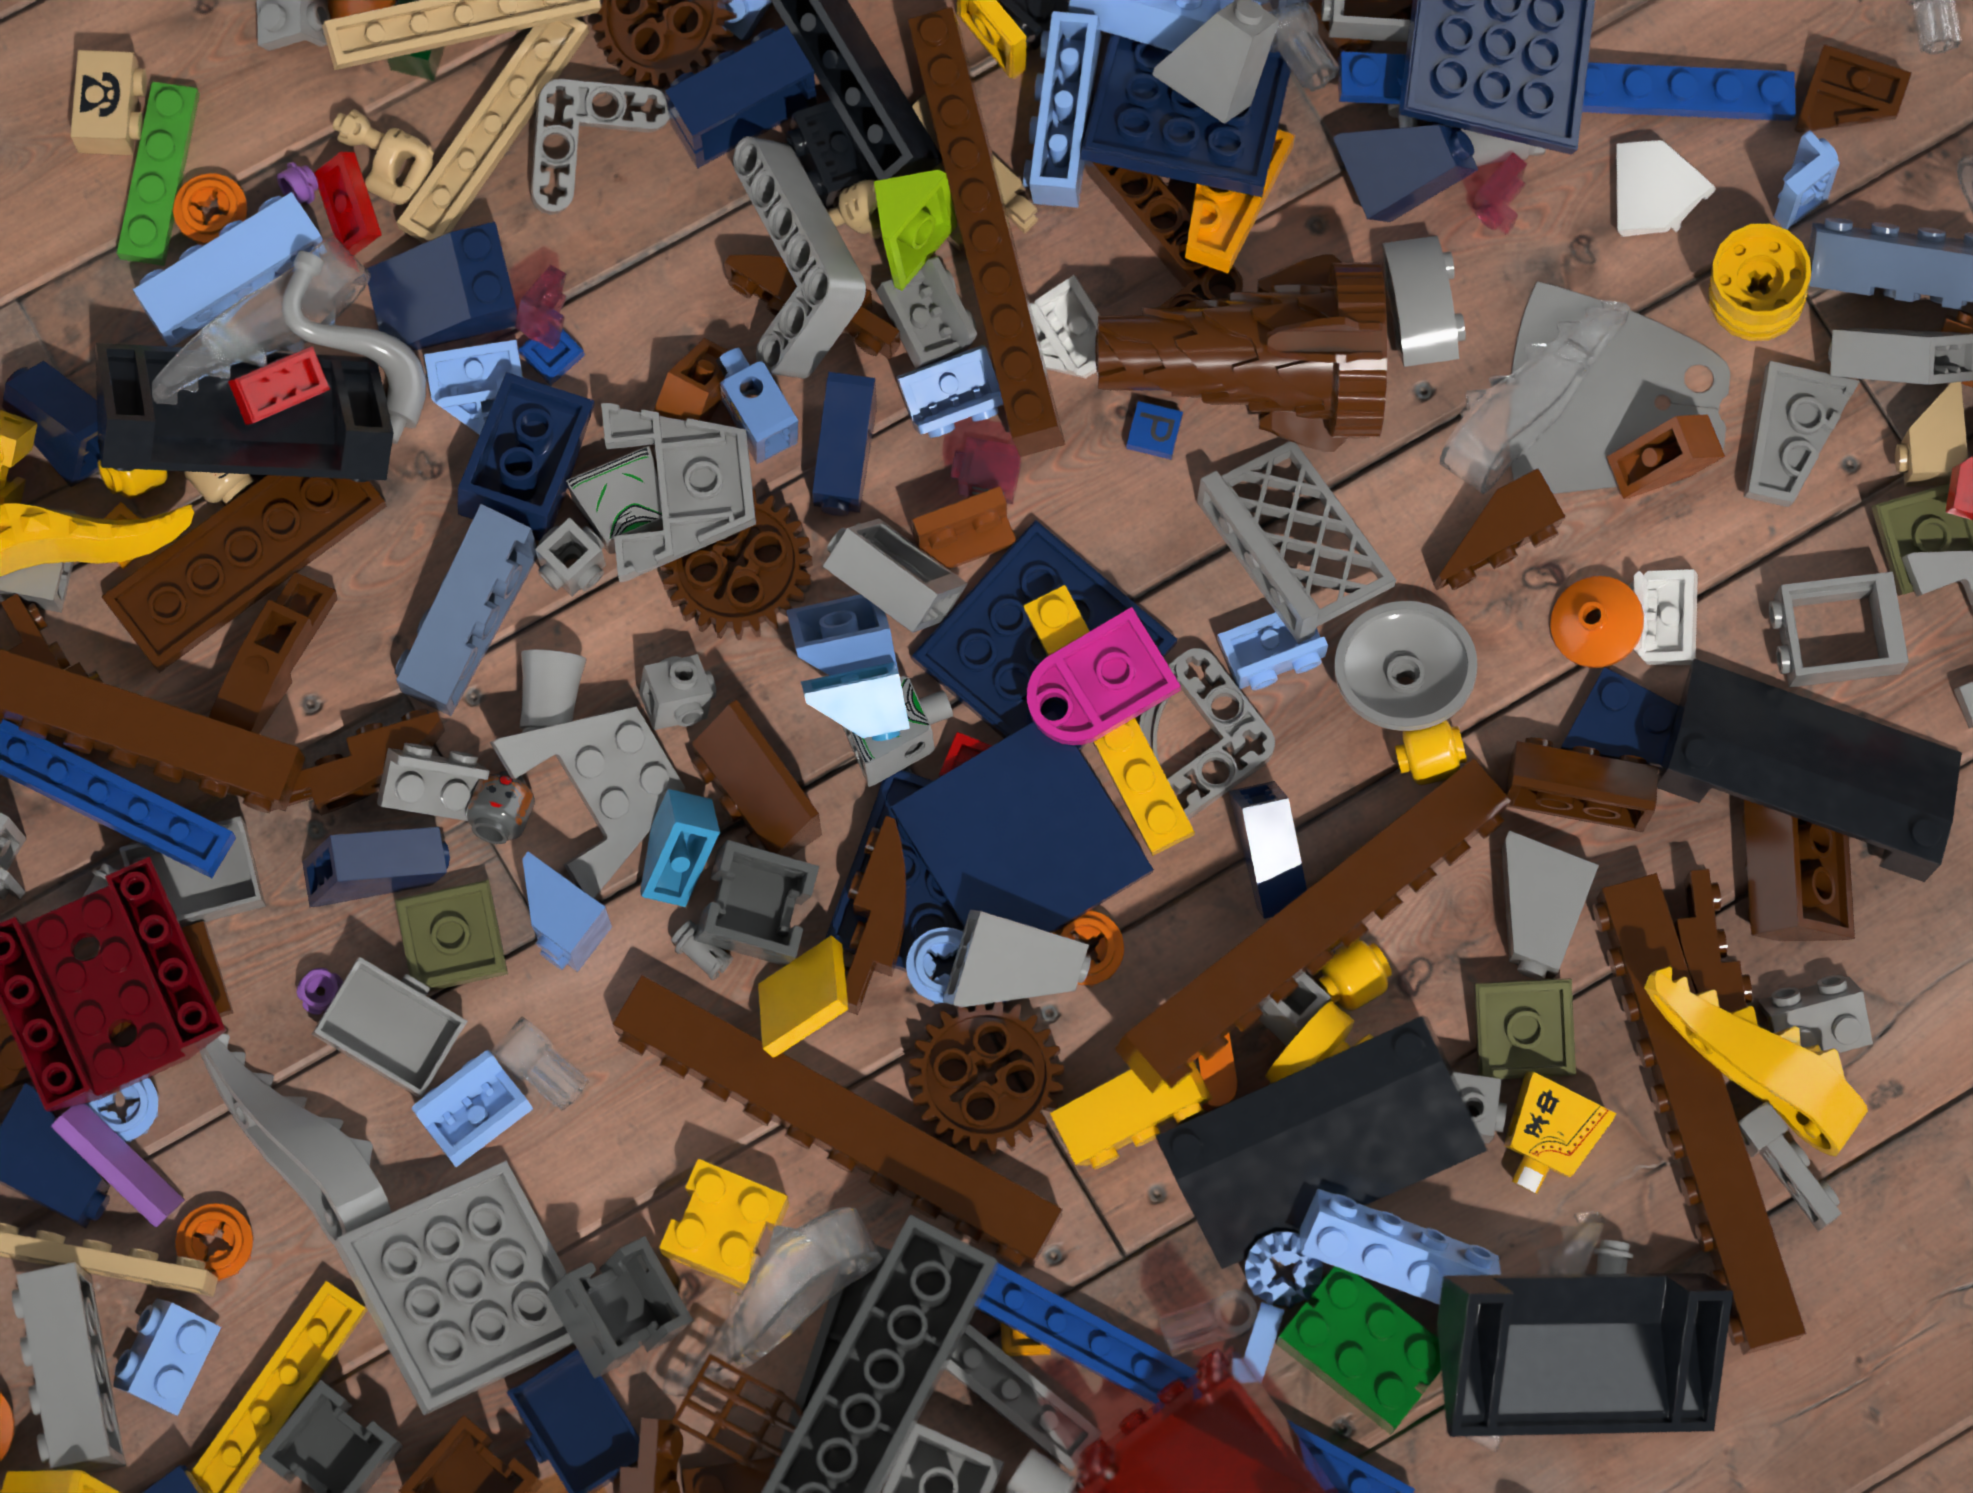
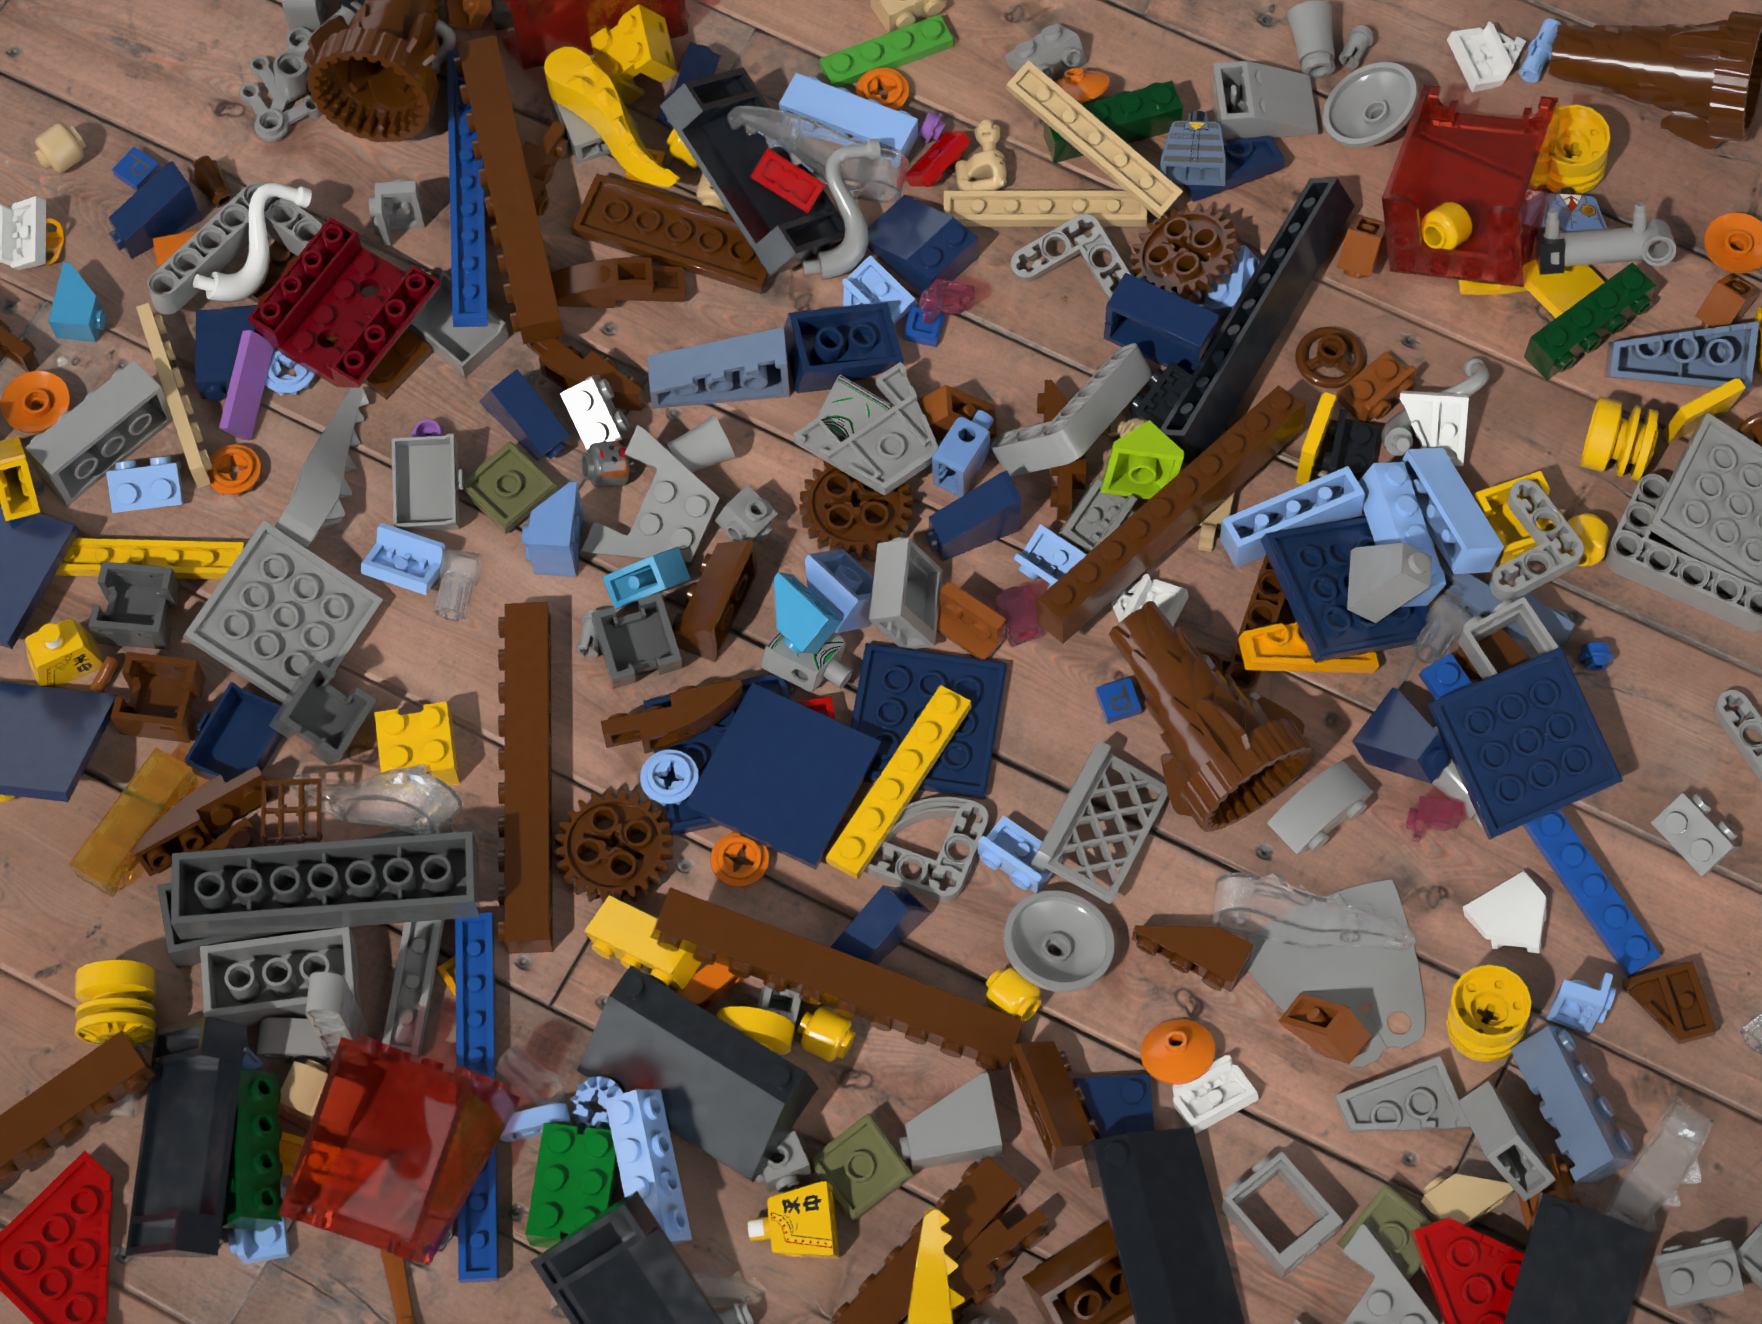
camera: 60 degrees right, 10 degrees down
(568, 543) = (792, 406): light grey brick -> none
(802, 996) = (591, 701): yellow tile -> none
(1012, 962) = (693, 811): light grey slope -> none
(1103, 680) = (918, 756): dark pink tile -> none

